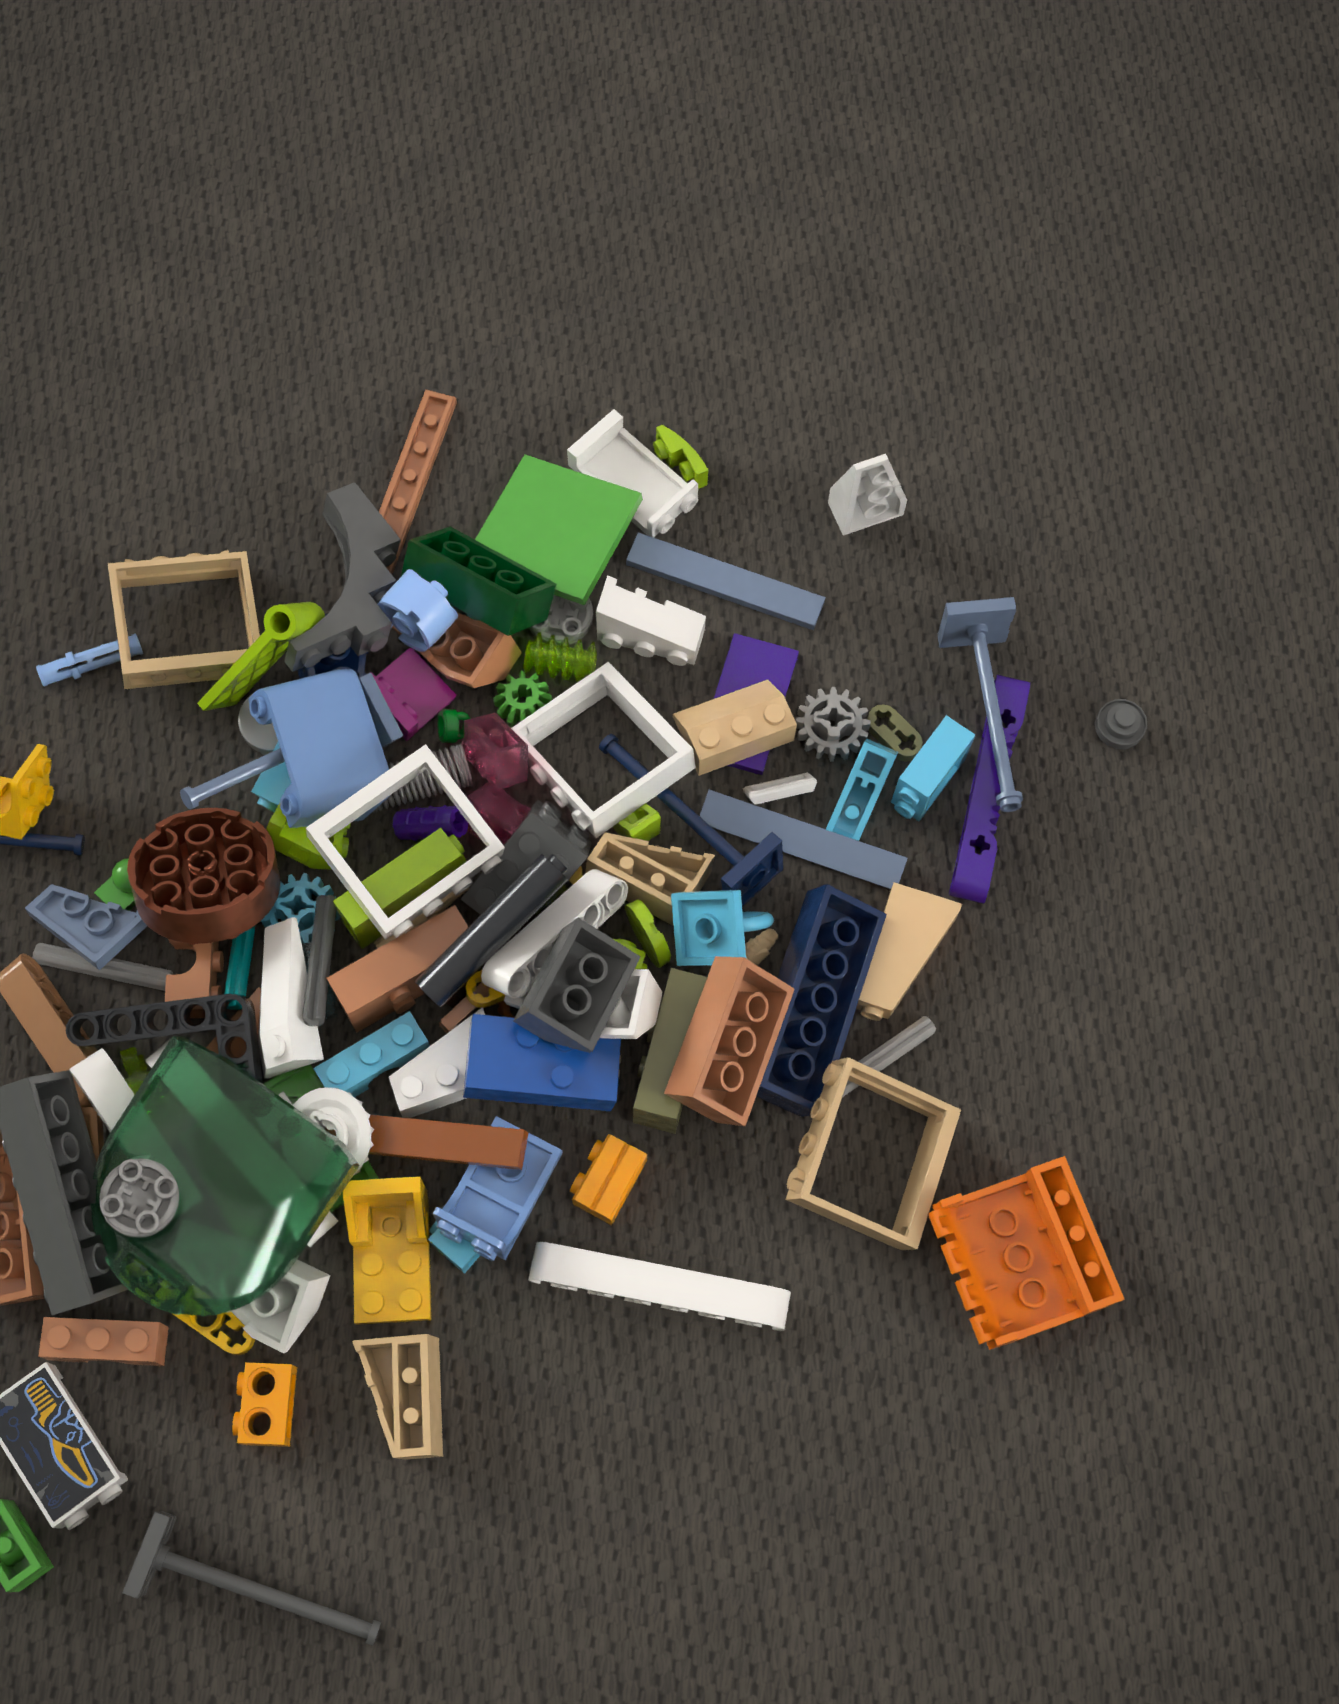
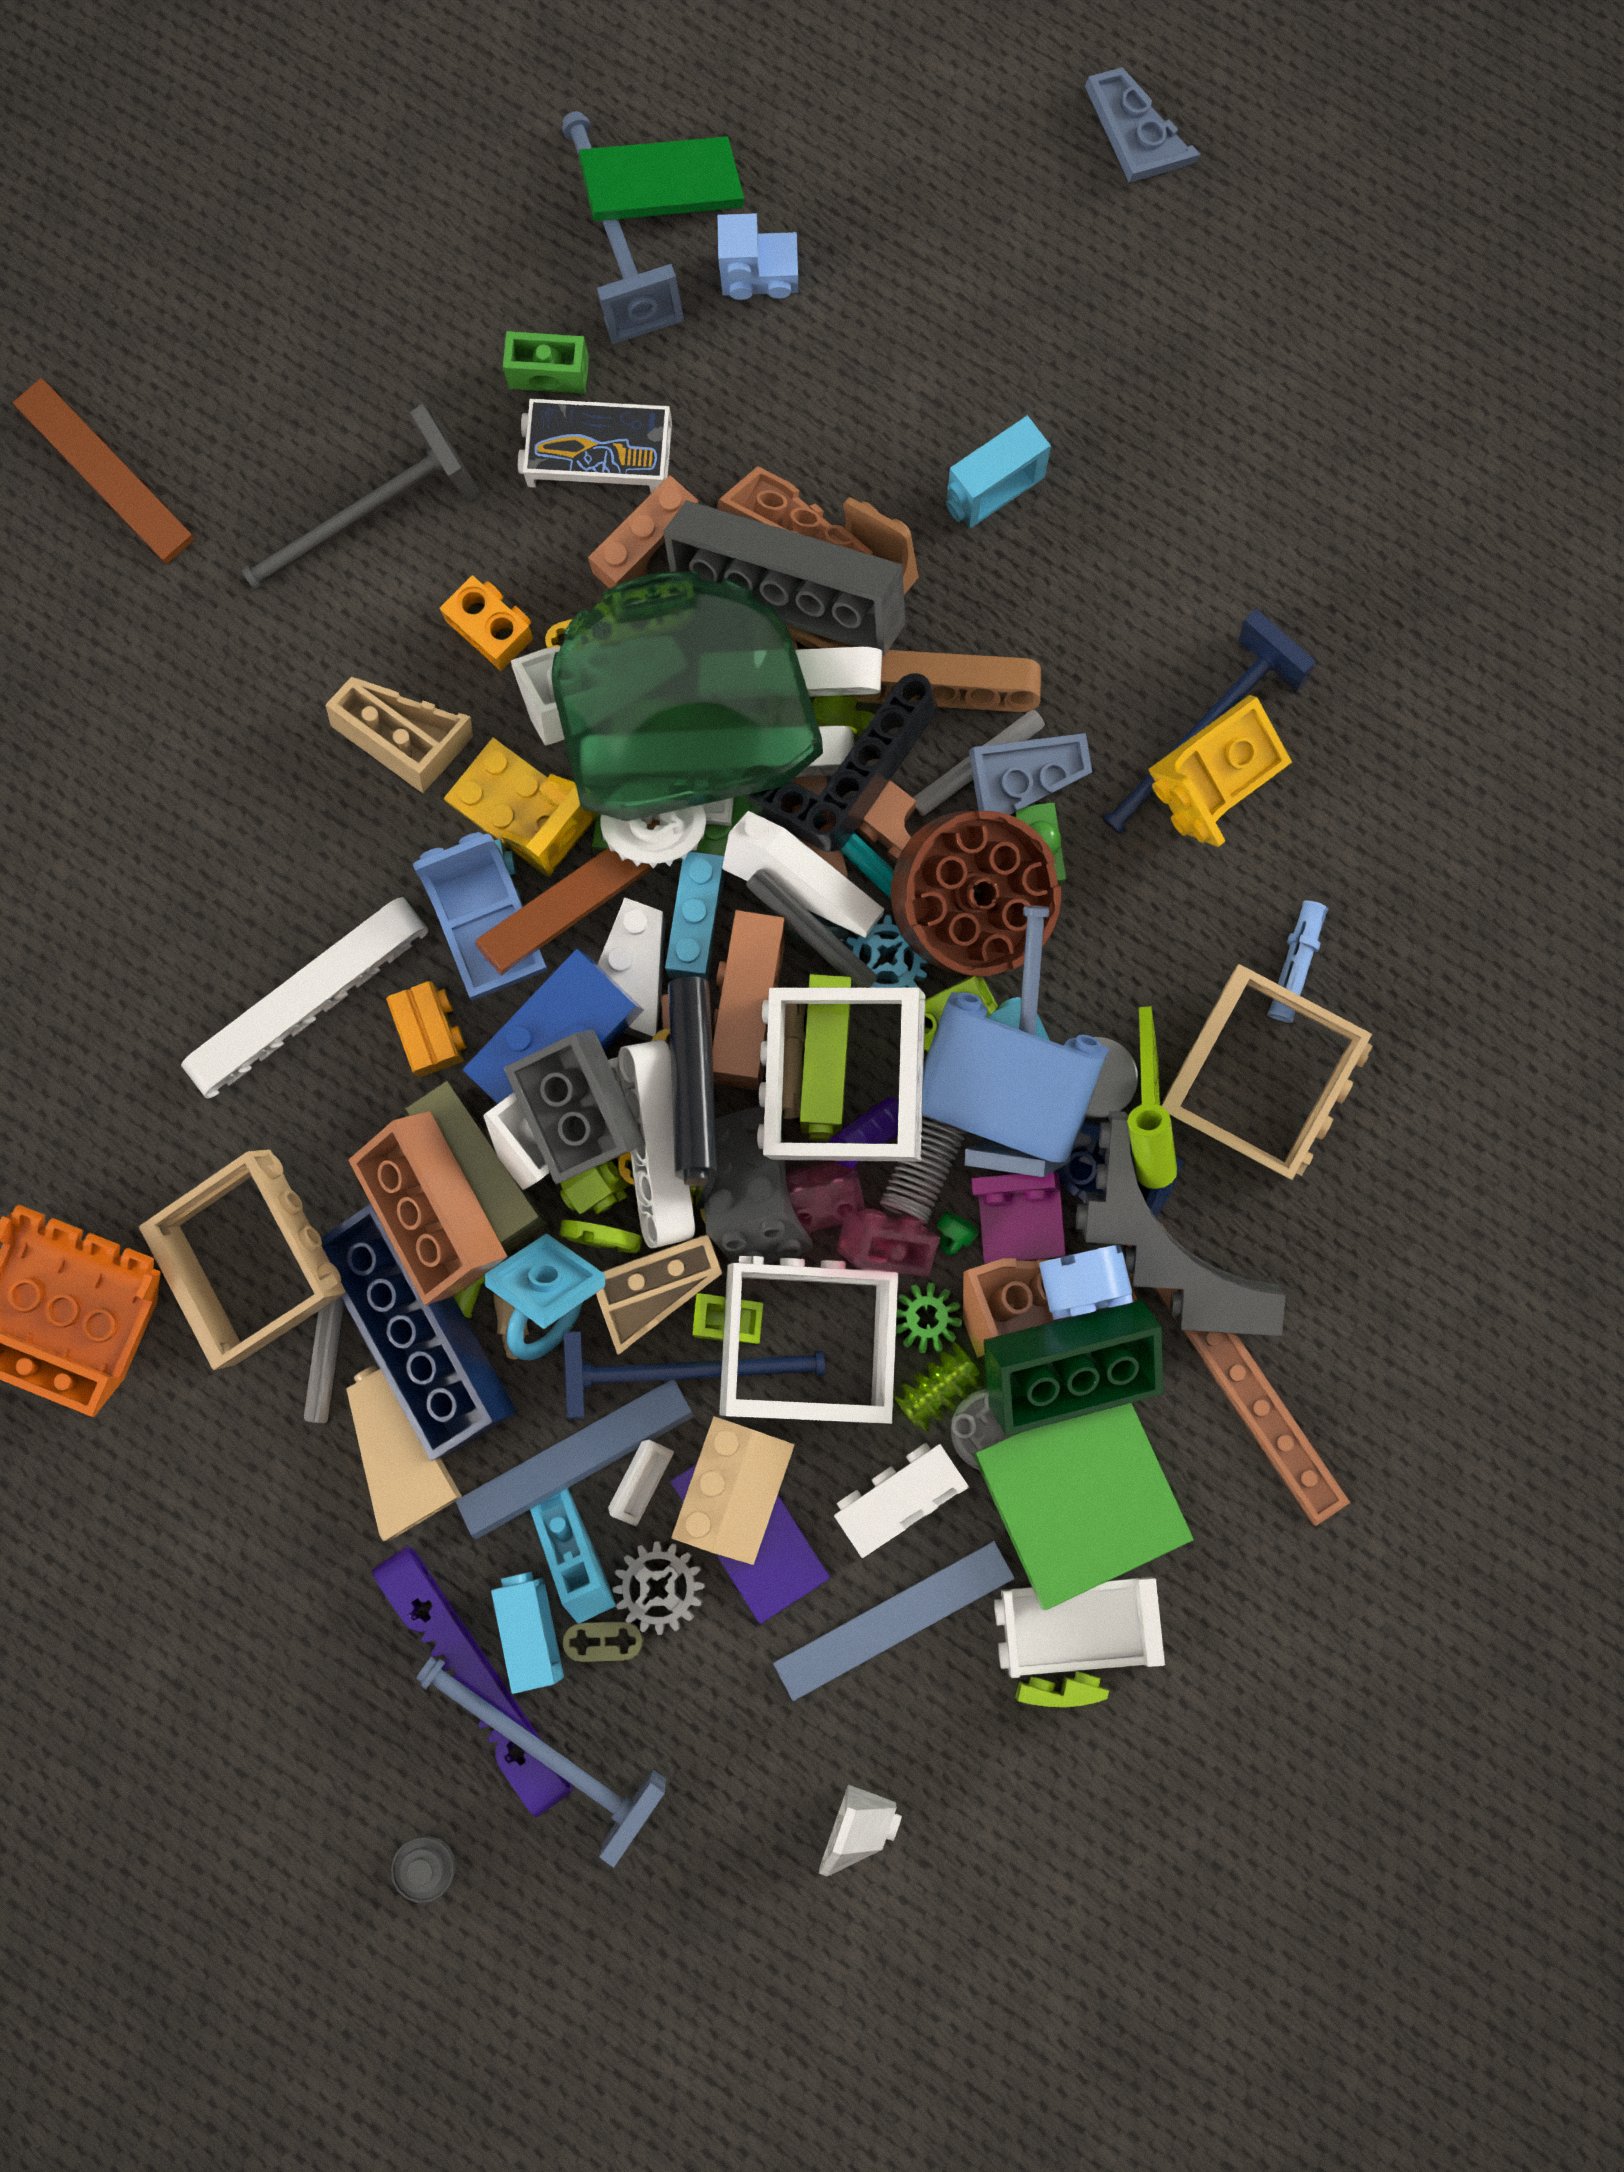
camera: 140 degrees right, 10 degrees up
(139, 1197) = (722, 630): light grey tile -> none

